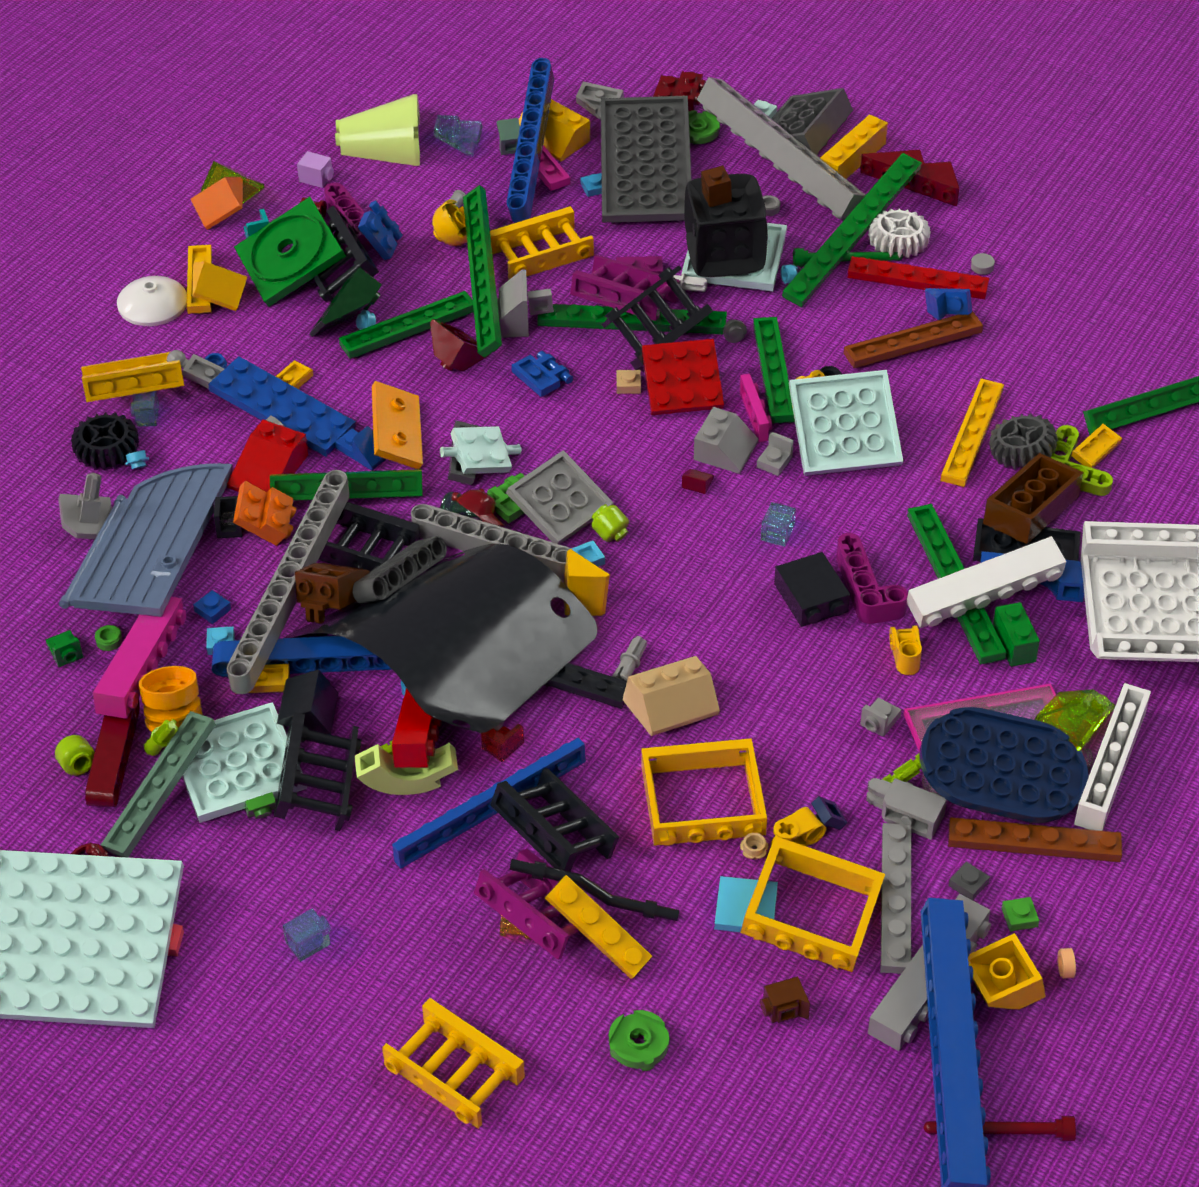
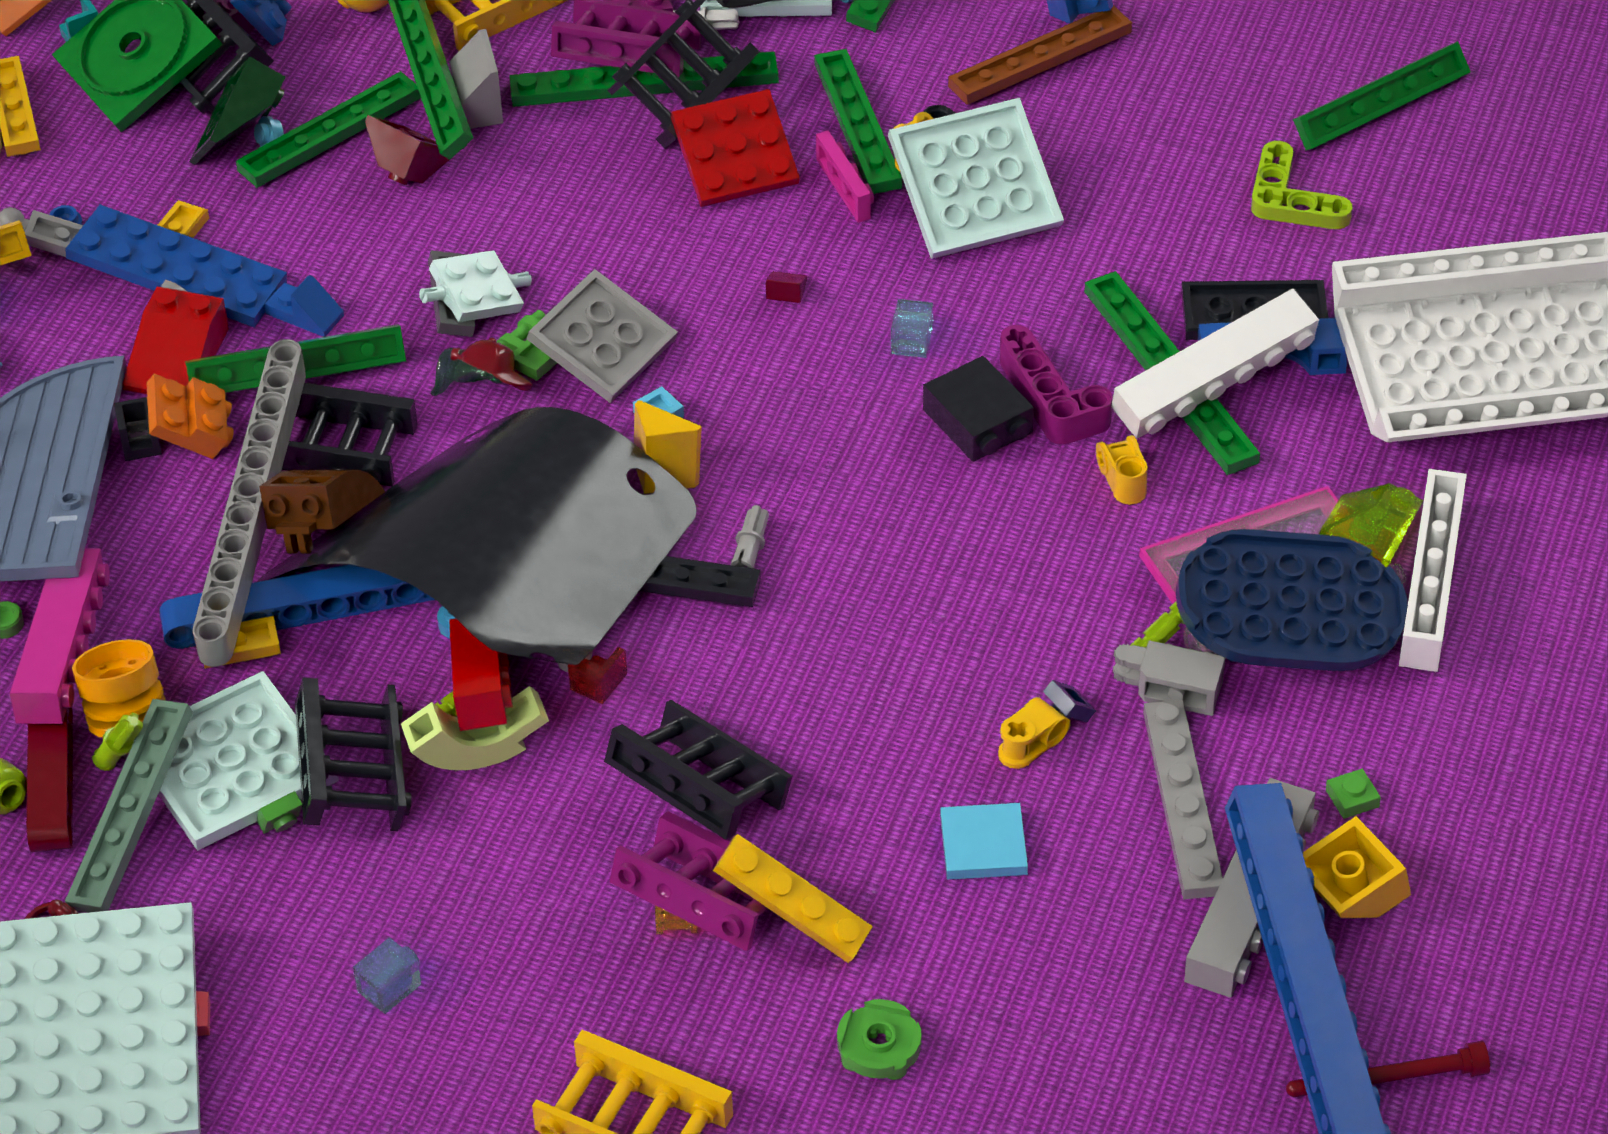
camera: 10 degrees left, 0 degrees up
(212, 607) = (142, 555): blue plate -> none
(217, 285) = (43, 109): yellow slope -> none
(218, 634) = (160, 592): medium azure plate -> none
(311, 696) = (314, 652): black slope -> none
(396, 425) = (348, 269): light orange plate -> none
(399, 570) = (402, 464): dark grey beam -> none
(467, 533) = (482, 401): light grey beam -> none
(478, 807) = (588, 767): blue plate -> none
(536, 373) = (530, 174): blue plate -> none
(540, 301) = (514, 71): light grey plate -> none
(610, 523) = (680, 360): lime head -> none
(628, 381) = (659, 165): tan plate -> none
(648, 908) = (851, 866): black bar -> none
(671, 695) = (820, 578): tan slope -> none
(701, 757) = (882, 653): yellow window -> none
(724, 441) = (812, 227): light grey slope -> none
(734, 331) = (791, 76): flat silver plate -> none
(751, 841) = (977, 761): tan plate -> none
(776, 455) = (887, 234): light grey bracket -> none
(785, 1000) = (1066, 955): reddish brown window -> none
(828, 869) = (1084, 774): yellow window -> none
(880, 716) = (1108, 564): light grey bracket -> none
(969, 881) = (1275, 760): dark grey plate -> none
(972, 432) = (1147, 169): yellow tile -> none
(1016, 634) = (1269, 427): green brick -> none
(1022, 439) = (1221, 170): dark grey gear -> none
(1033, 498) = (1252, 243): reddish brown brick -> none
(1035, 839) = (1350, 693): dark orange plate -> none
(1066, 963) = (1429, 846): light nougat tile -> none
(1096, 446) = (1320, 164): yellow plate -> none

